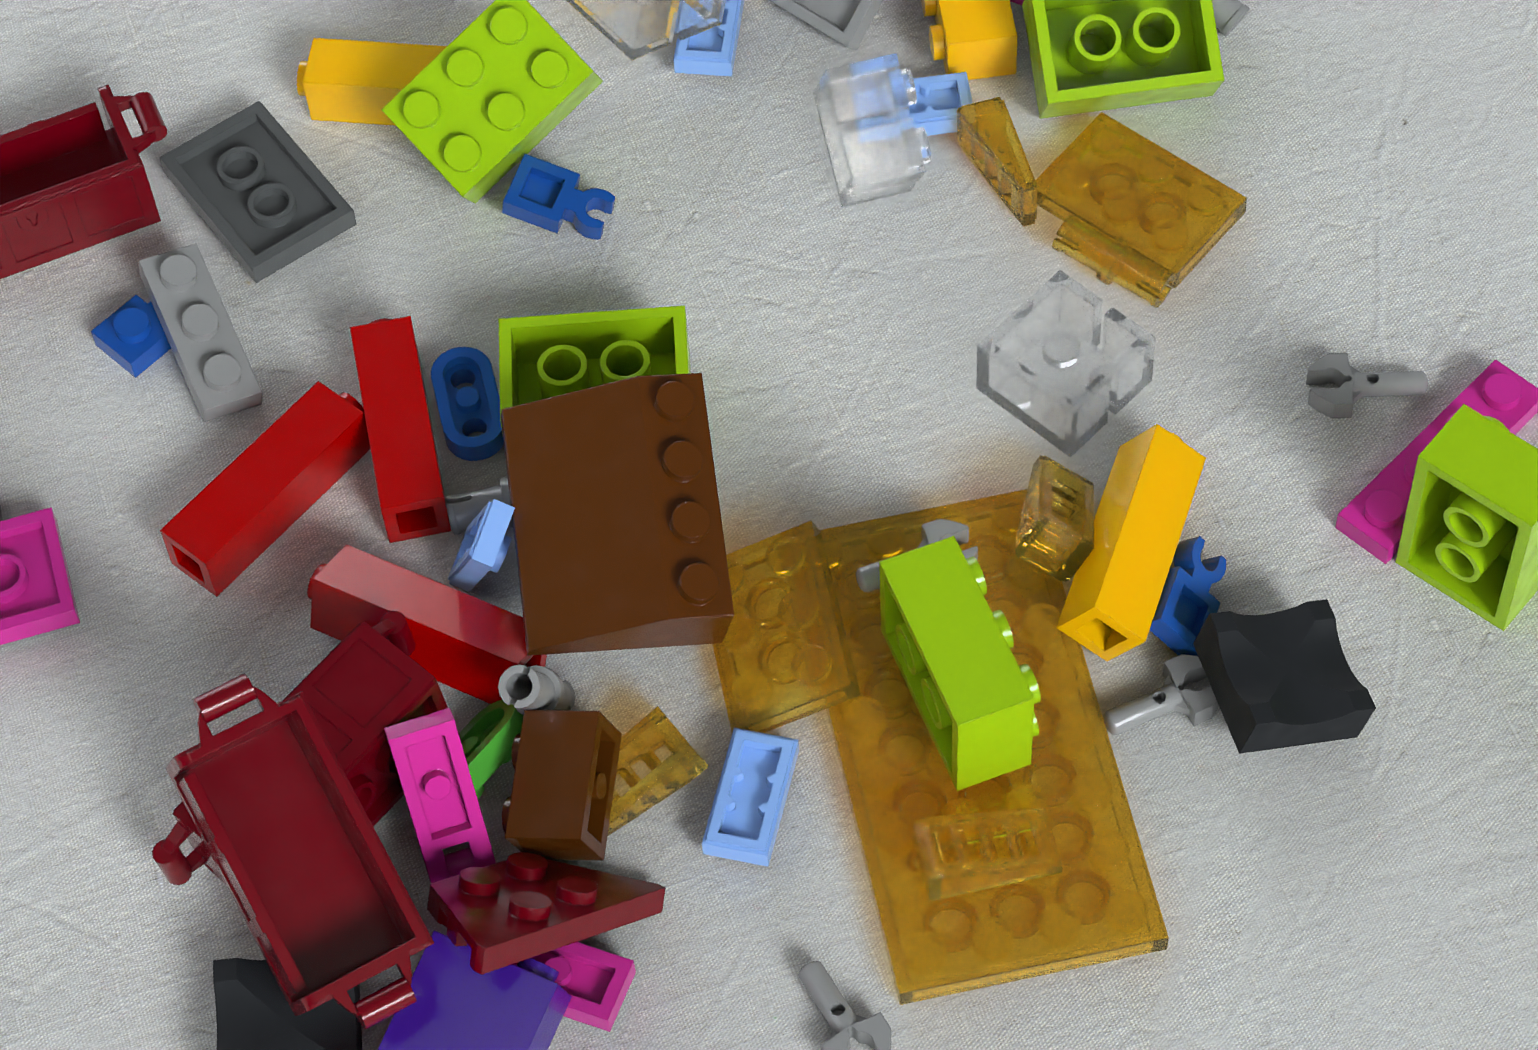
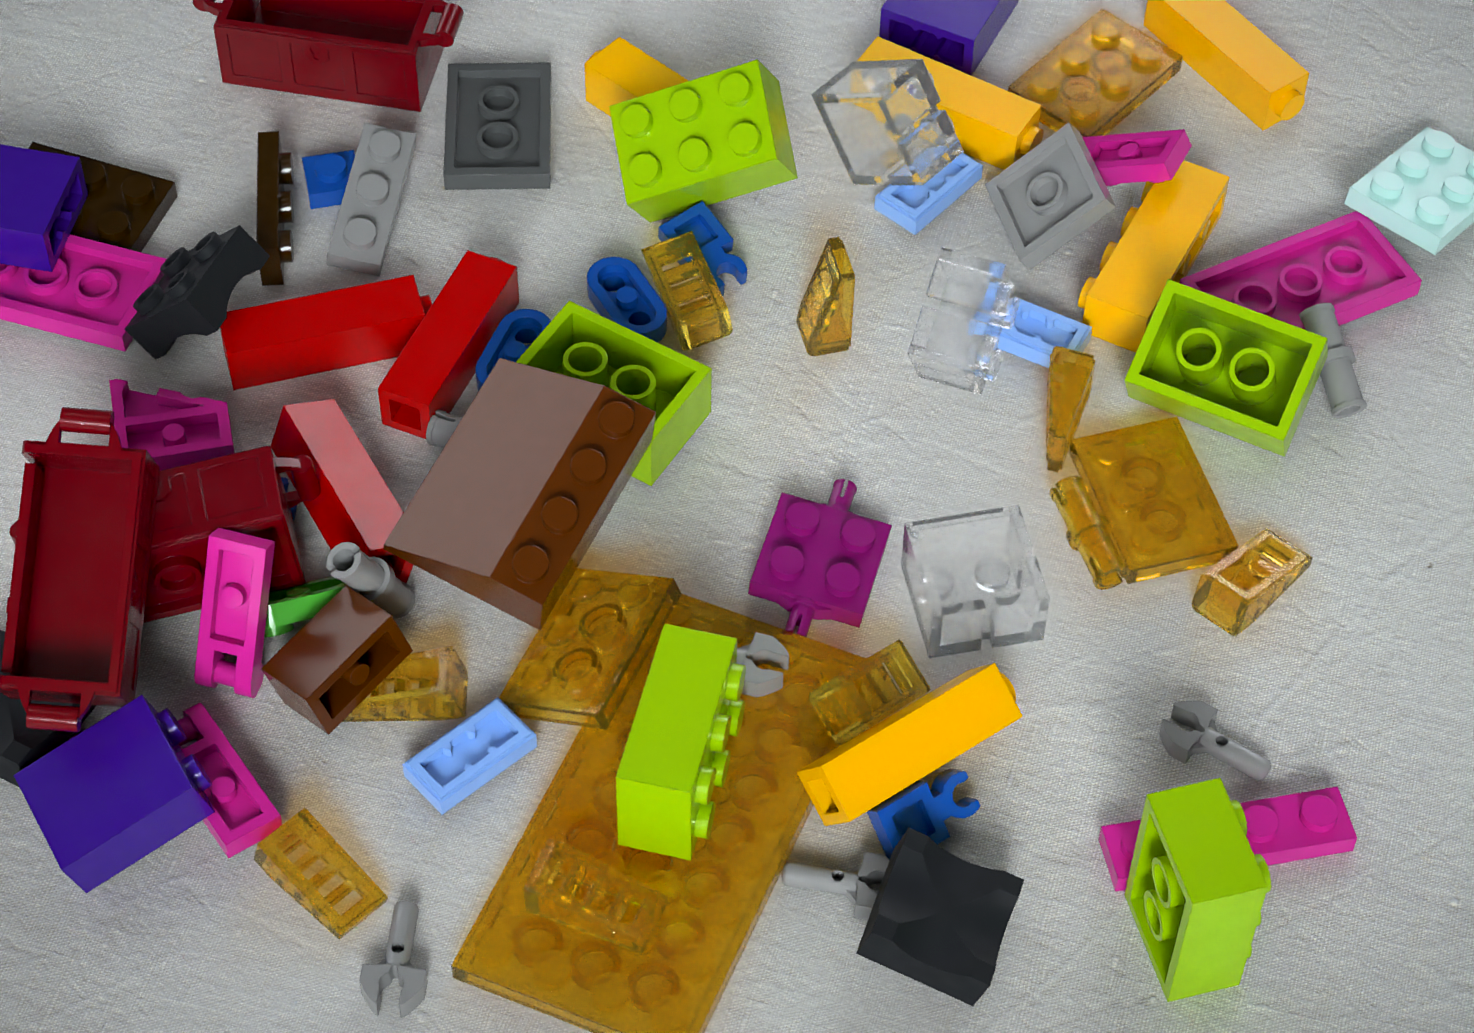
camera: 30 degrees right, 5 degrees down
(109, 397) = (274, 206): none -> dark brown plate
(119, 520) = (194, 290): none -> black brick
(190, 665) = (171, 425): none -> dark pink wing
(482, 546) = (418, 452): light blue plate -> none
(532, 285) = (633, 304): none -> blue plate
(535, 907) = (239, 729): dark red wing -> none
(607, 269) = (699, 320): none -> clear yellow slope
(704, 1014) = (306, 830): none -> clear yellow slope
(723, 190) = (828, 303): none -> clear yellow slope
(904, 426) = (820, 559): none -> magenta plate
(1277, 225) = (1245, 584): none -> clear yellow slope

